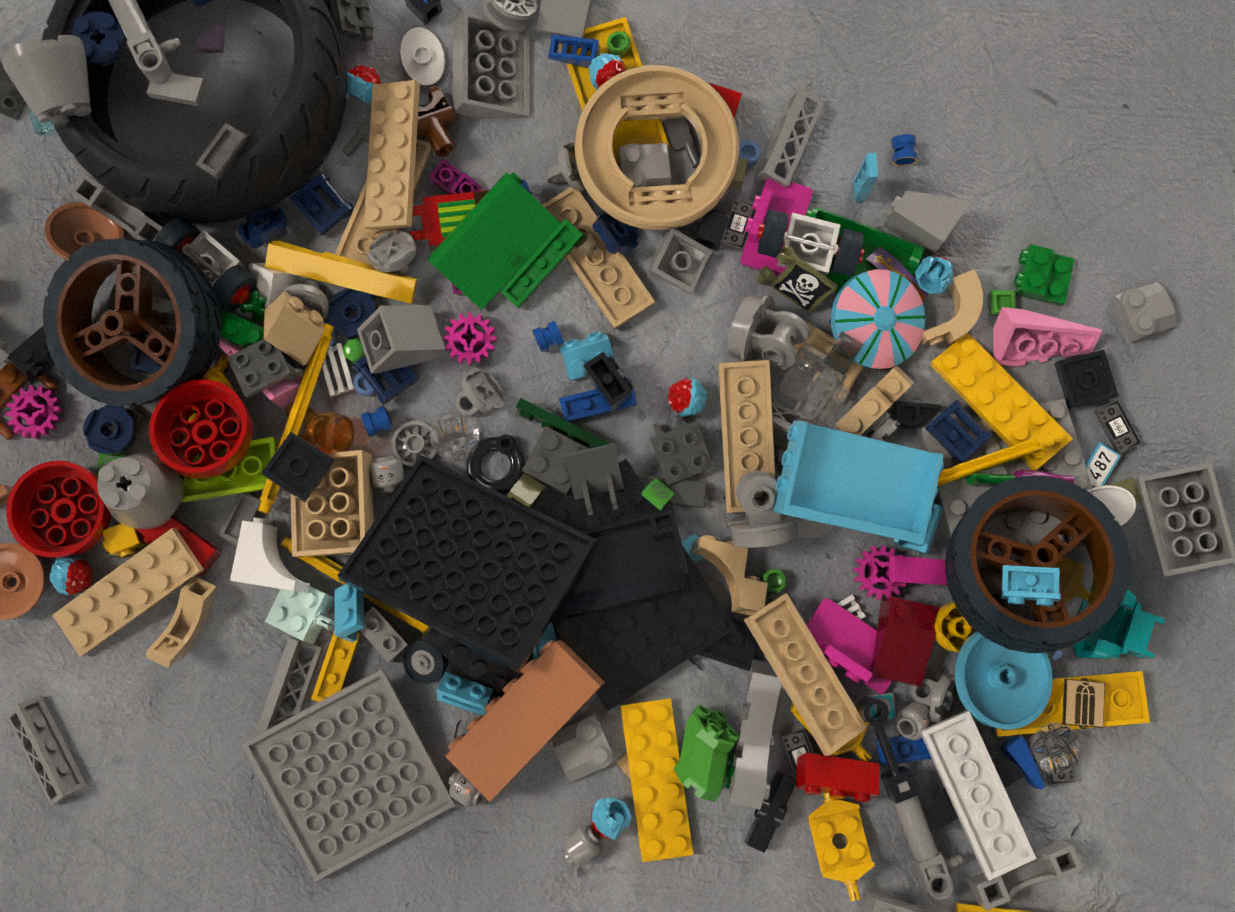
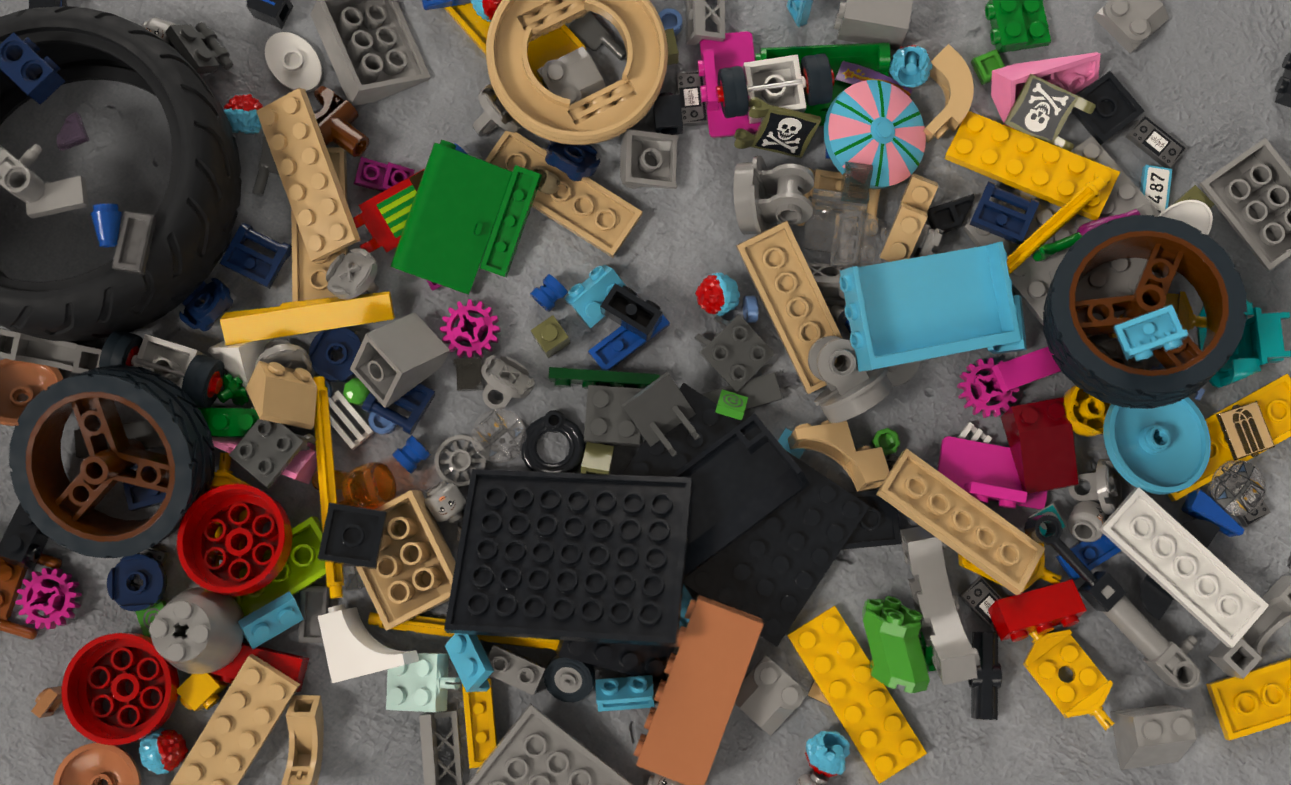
camera: 20 degrees left, 0 degrees up
(203, 507) = (270, 620): none -> medium azure bracket
(207, 125) = (107, 224): none -> blue cone
(452, 375) = (469, 374): none -> clear smoke panel
(533, 373) = (550, 336): none -> olive brick
(709, 421) = (750, 309): none -> medium blue tile
(1031, 359) = (1044, 110): none -> flag

